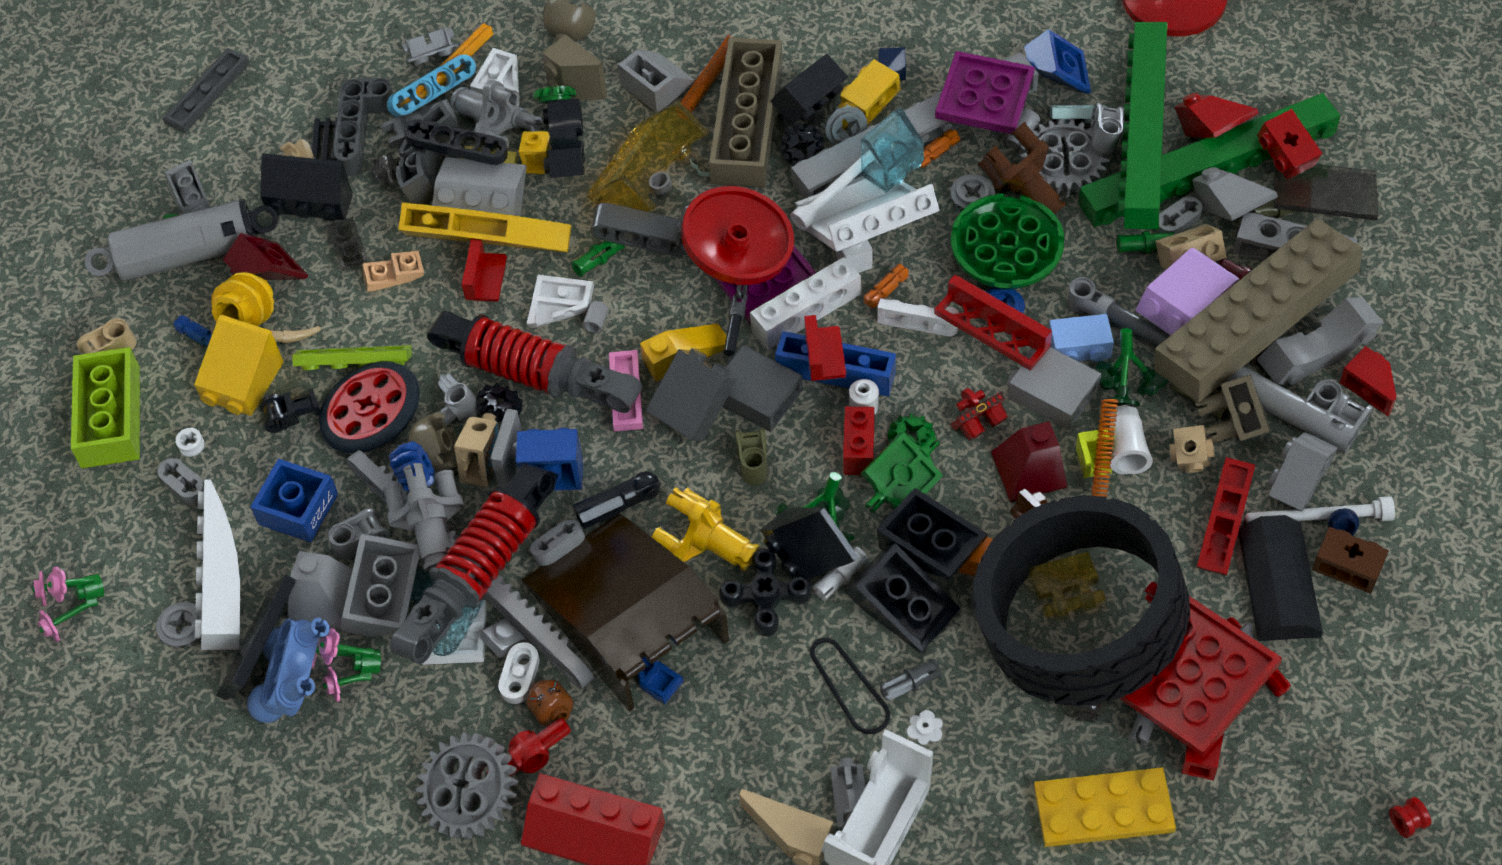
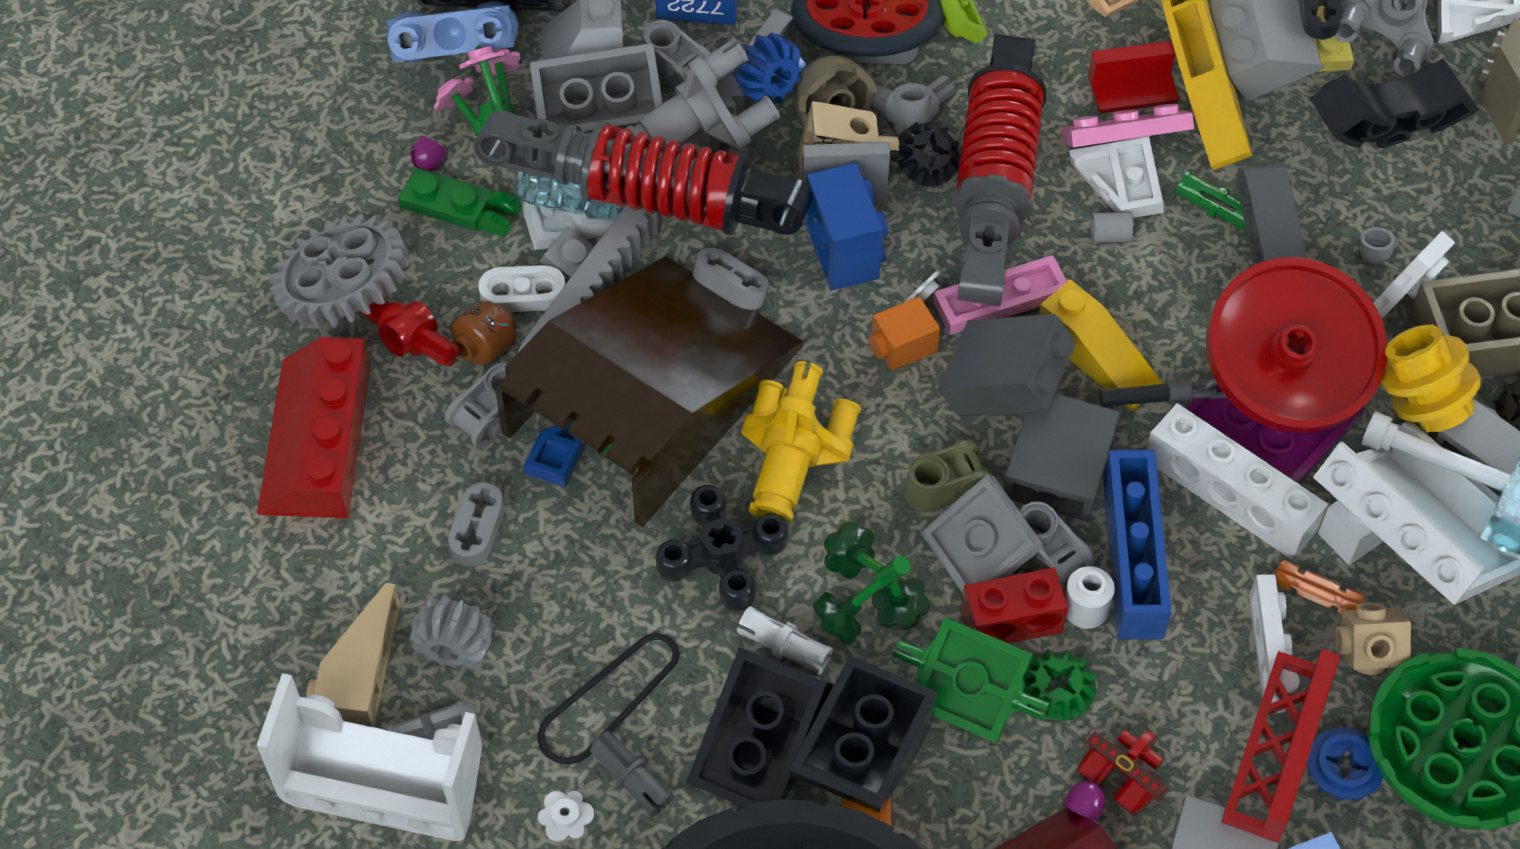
camera: 70 degrees right, 0 degrees up
(377, 714) = (427, 154): none -> magenta hinge
(425, 703) = (458, 202): none -> green hinge
(523, 286) = (1127, 125): none -> bright pink plate
(533, 150) = (1362, 65): yellow bracket -> none
(554, 93) = (1462, 66): green gear -> none
(606, 431) = (926, 288): none -> white plant
(613, 714) = (478, 409): none -> light grey piece
(617, 499) = (819, 329): black piece -> none
(638, 450) = (904, 334): none -> orange brick
(647, 150) = (1351, 200): clear yellow windscreen -> none
(695, 744) = (467, 520): none -> light grey beam
(696, 166) = (1421, 269): none -> white wing
(781, 177) = (1430, 378): none -> yellow piece
(786, 762) = (451, 633): none -> light grey gear
(806, 444) = (982, 535): none -> light grey plate
(807, 542) = (797, 565): black slope -> none
(821, 412) = (1061, 546): none -> light grey piece
(824, 350) = (1133, 505): red panel -> none
(931, 264) = (1373, 638): none -> tan brick
(993, 437) = (1086, 799): none -> magenta hinge

